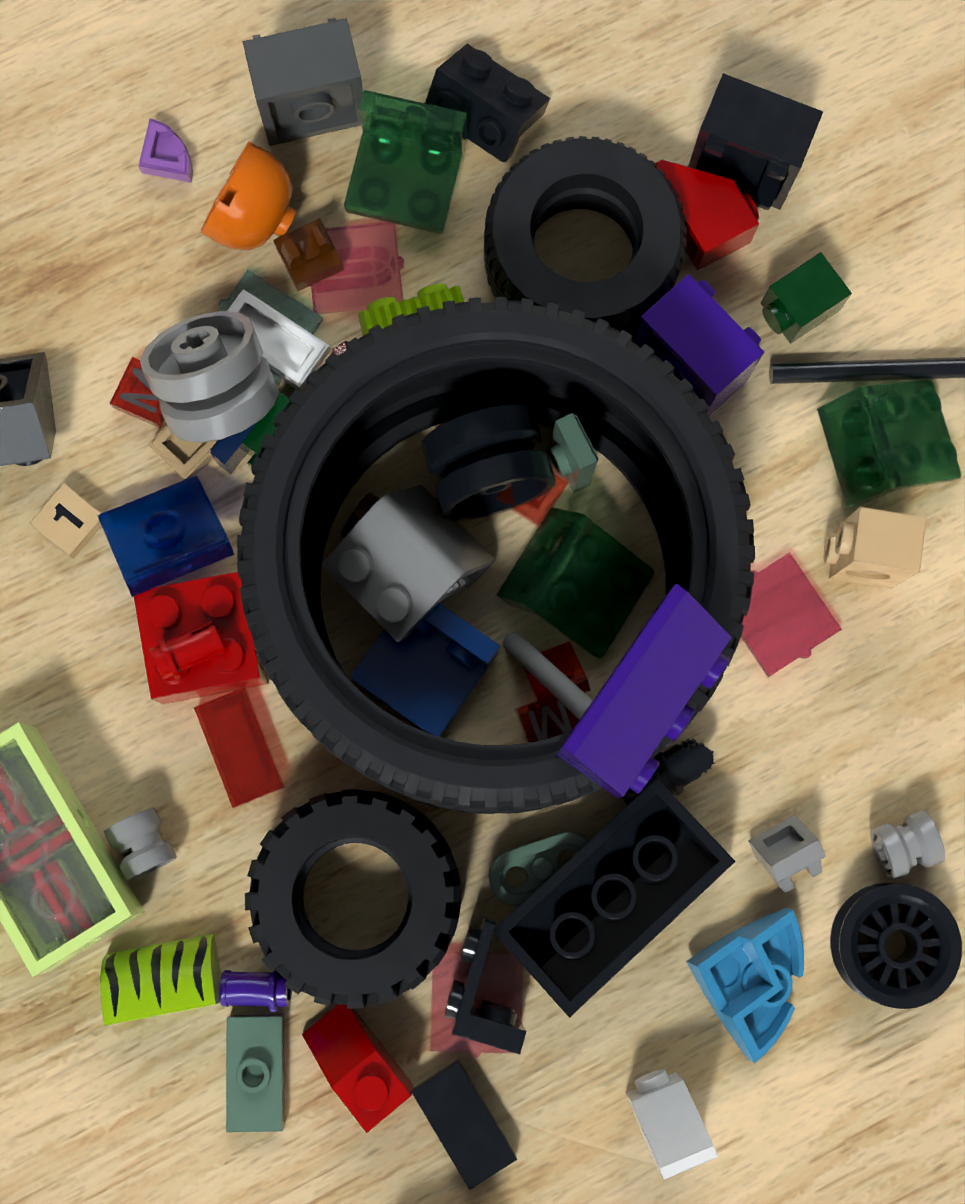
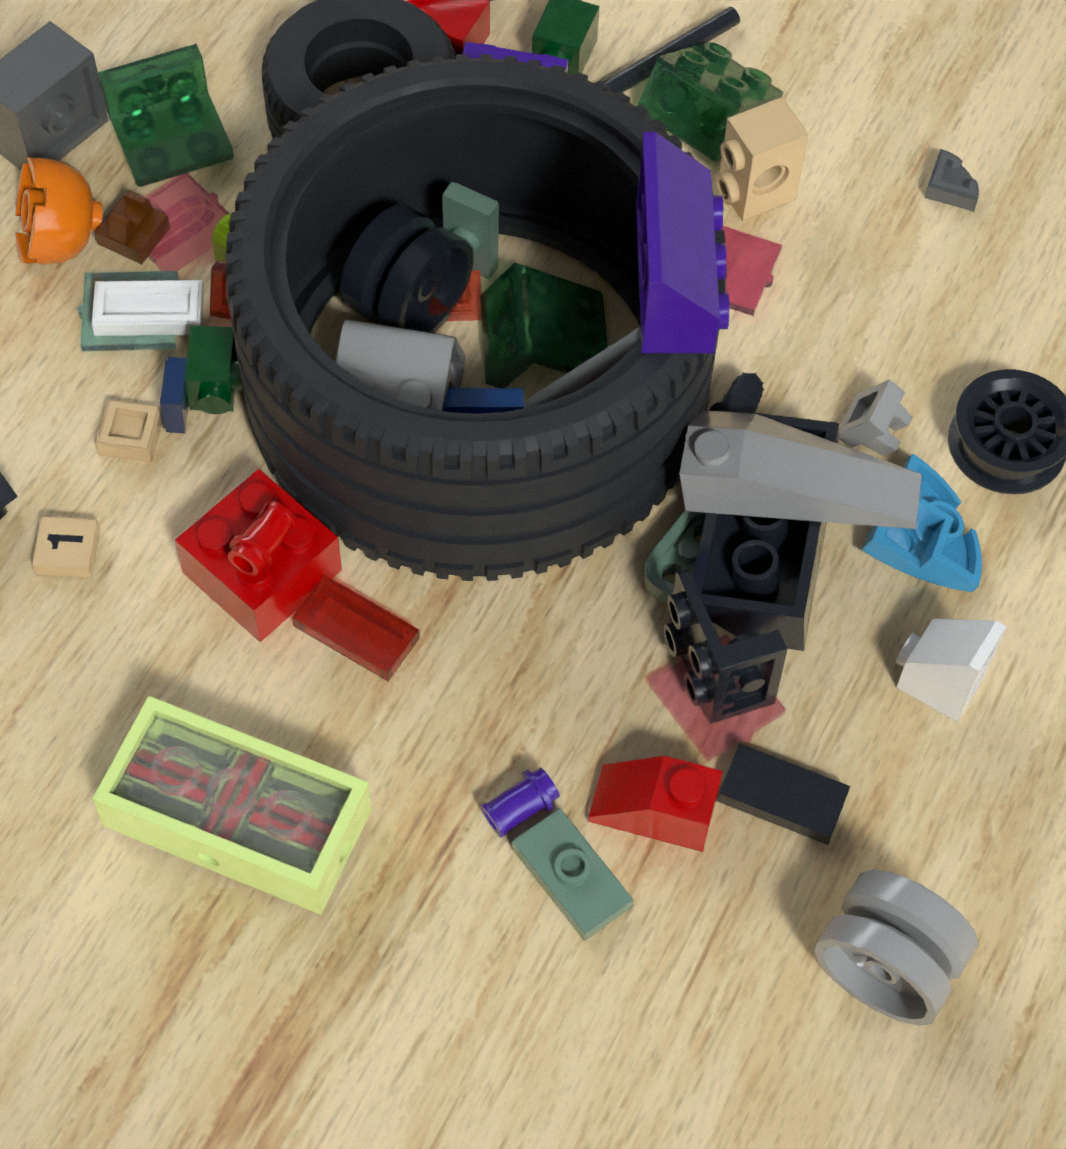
camera: 35 degrees left, 20 degrees down
(135, 396) = (63, 411): clear red tile -> none
(140, 844) = (325, 744): light grey wheel -> none
(160, 979) = (432, 851): lime brick -> none
(165, 535) = (167, 491): clear blue tile -> none
(210, 376) = (120, 342): light grey wheel -> none
(279, 911) = (561, 594): black tyre -> none
(494, 98) = (220, 38): black bracket -> none
(653, 878) = (777, 471): none -> light grey wedge
(903, 846) = (964, 349): light grey wheel -> none

